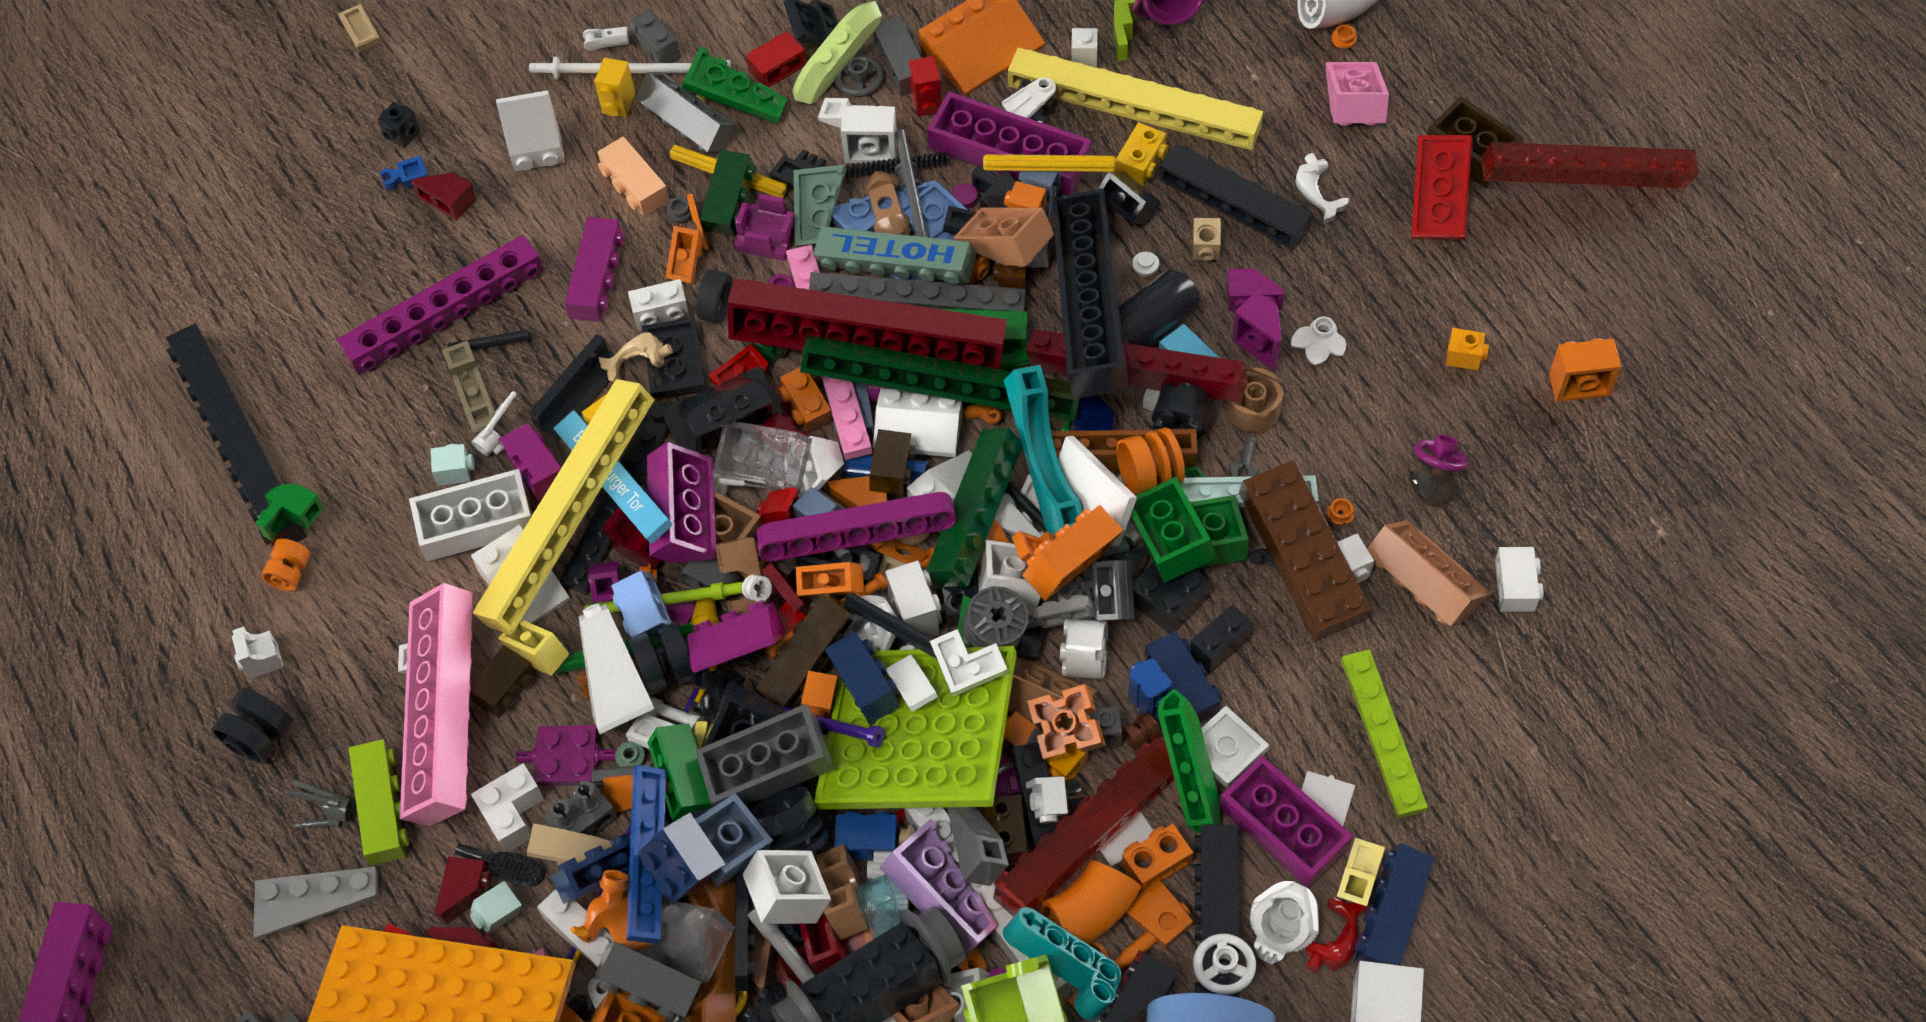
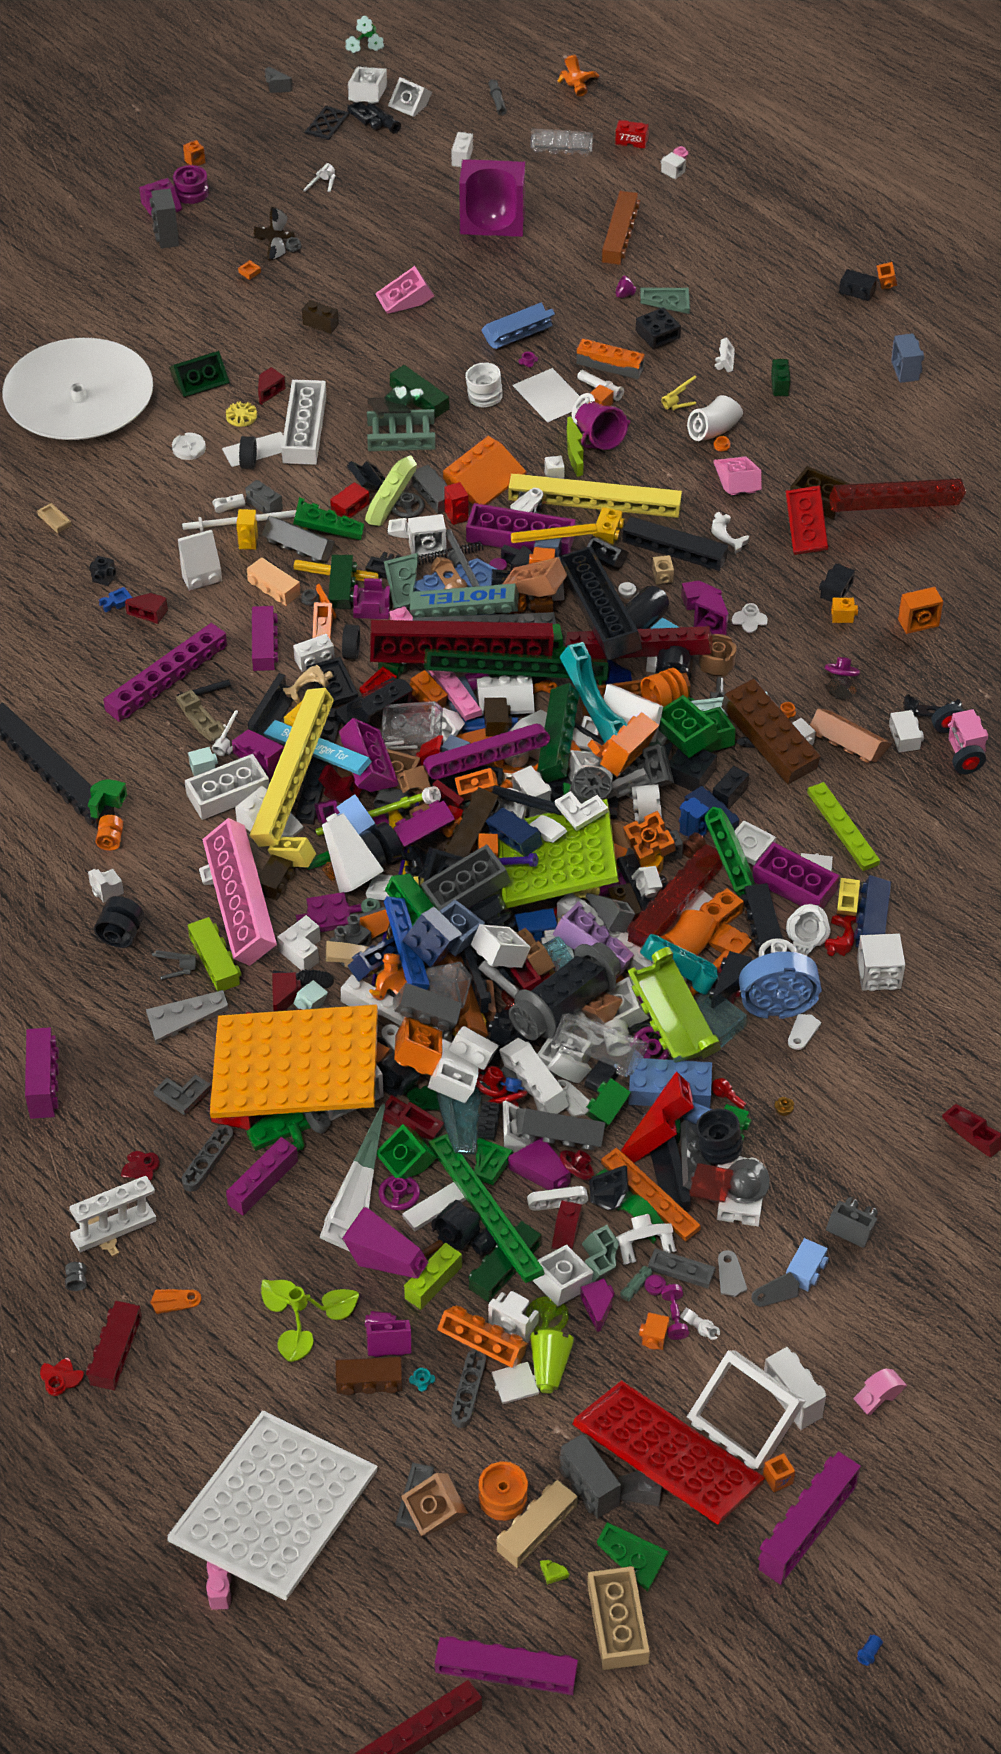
camera: 15 degrees left, 10 degrees down
(1466, 300) = (837, 582): none -> black brick
(1591, 554) = (921, 710): none -> black piece
(1609, 607) = (965, 736): none -> brick

